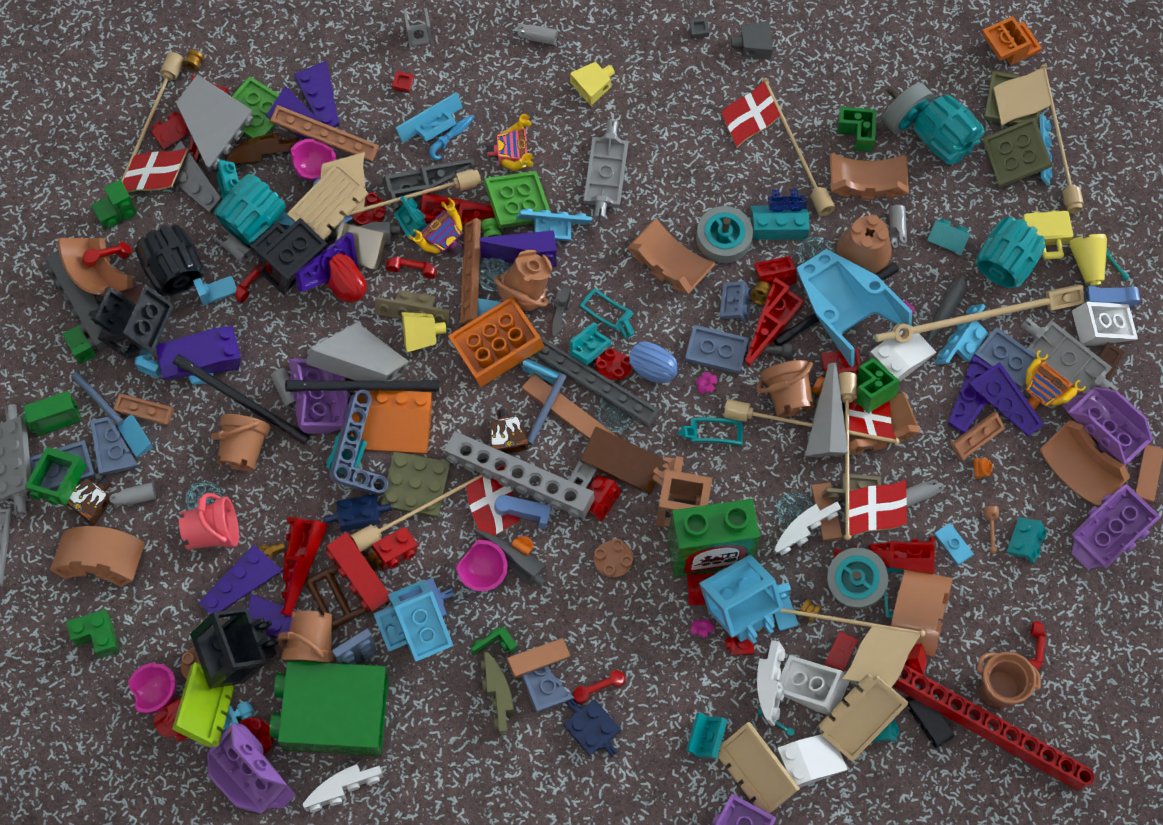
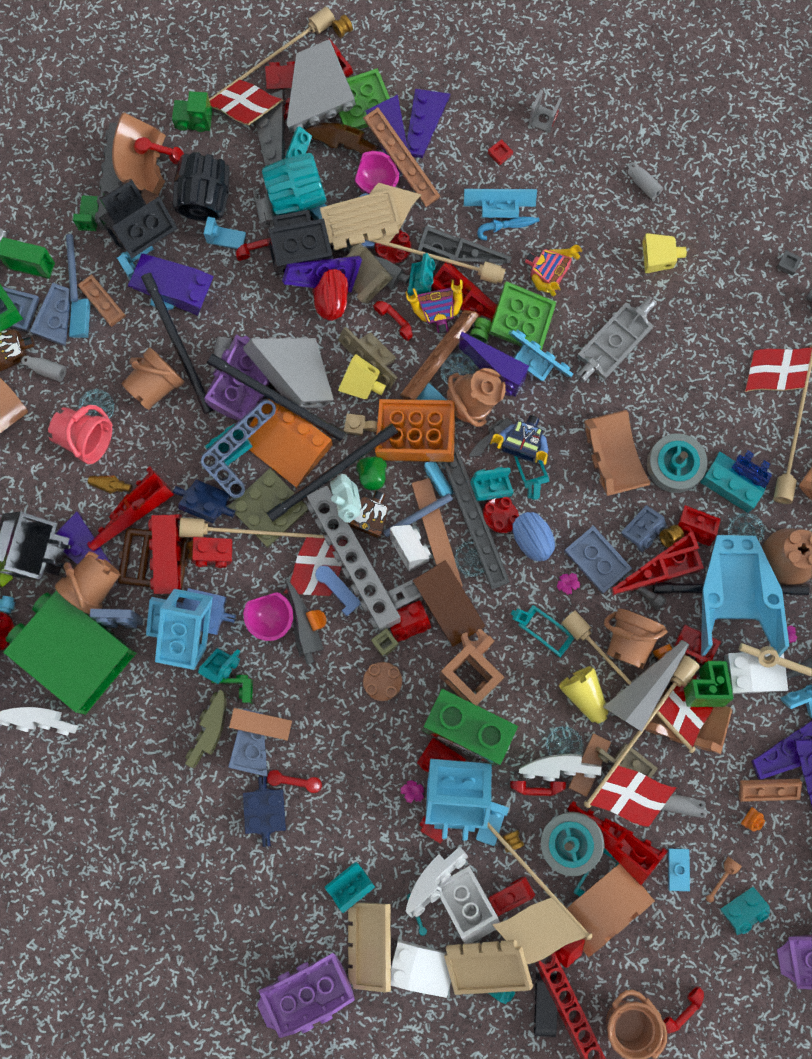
camera: 35 degrees right, 10 degrees up
(245, 576) = (82, 493): dark purple wing -> none
(430, 472) = (283, 507): none -> black piece
(442, 371) = (357, 424): none -> tan plate
(470, 634) = (219, 665): none -> teal bracket
(478, 430) = (346, 497): none -> light aqua piece
(482, 399) = (372, 472): none -> green hair
(557, 437) = (409, 547): none -> white slope
(590, 294) = (523, 440): none -> torso
(594, 524) = (384, 643): none -> olive brick
(784, 457) = (586, 694): none -> light yellow cone
(785, 566) = (520, 787): none -> red bar

